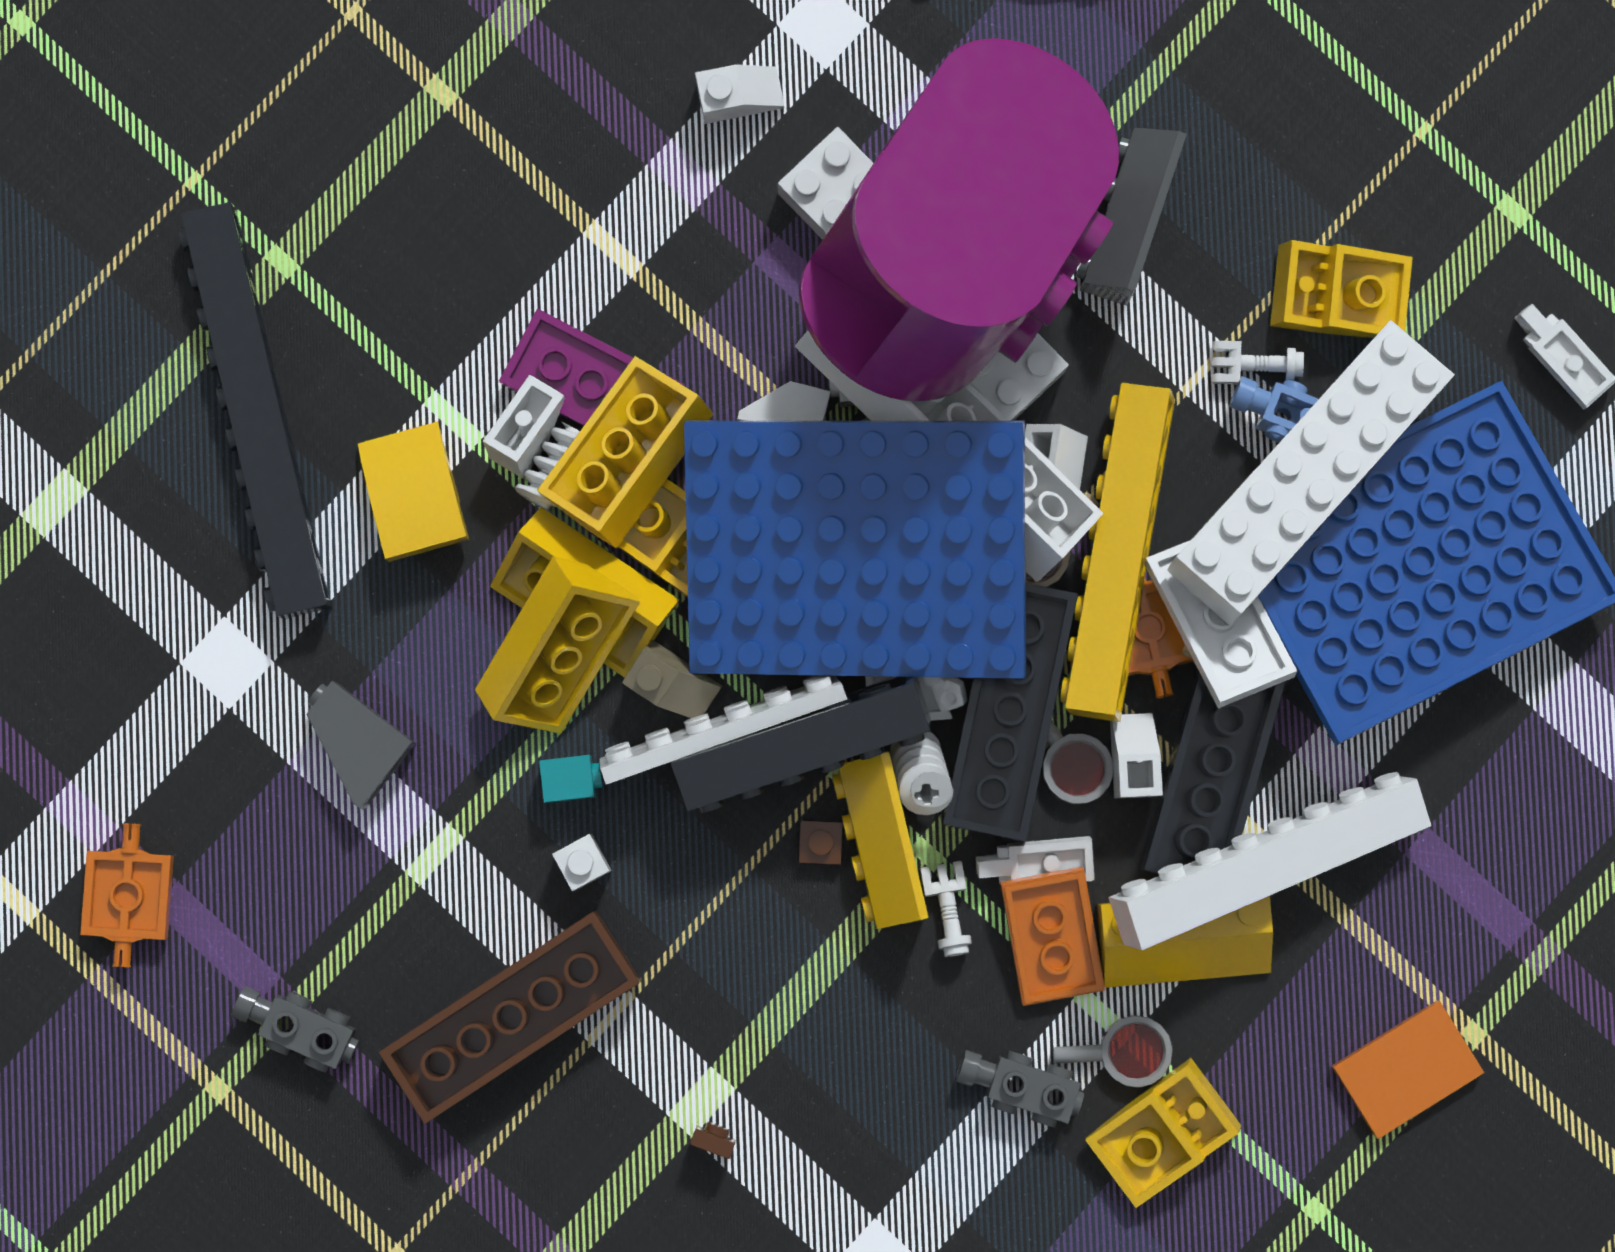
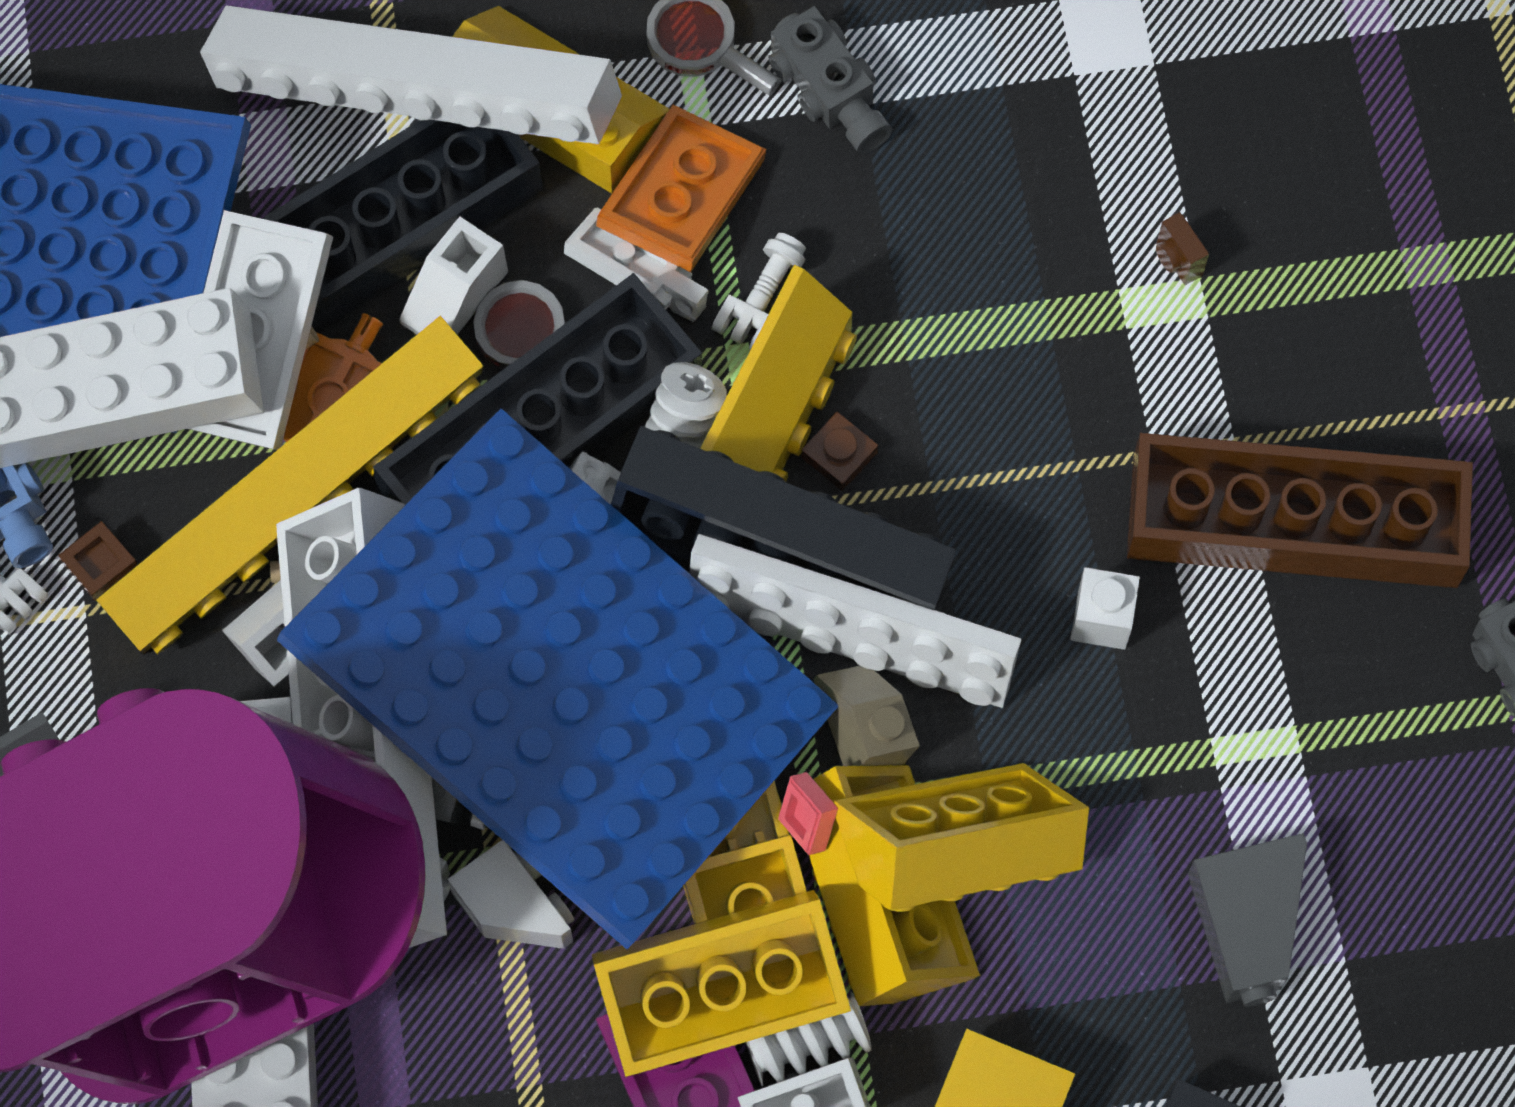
camera: 135 degrees left, 15 degrees down
(570, 778) = (1051, 703): teal brick -> none
(652, 587) = (807, 813): none -> coral tile
(1198, 422) = (97, 560): none -> reddish brown plate

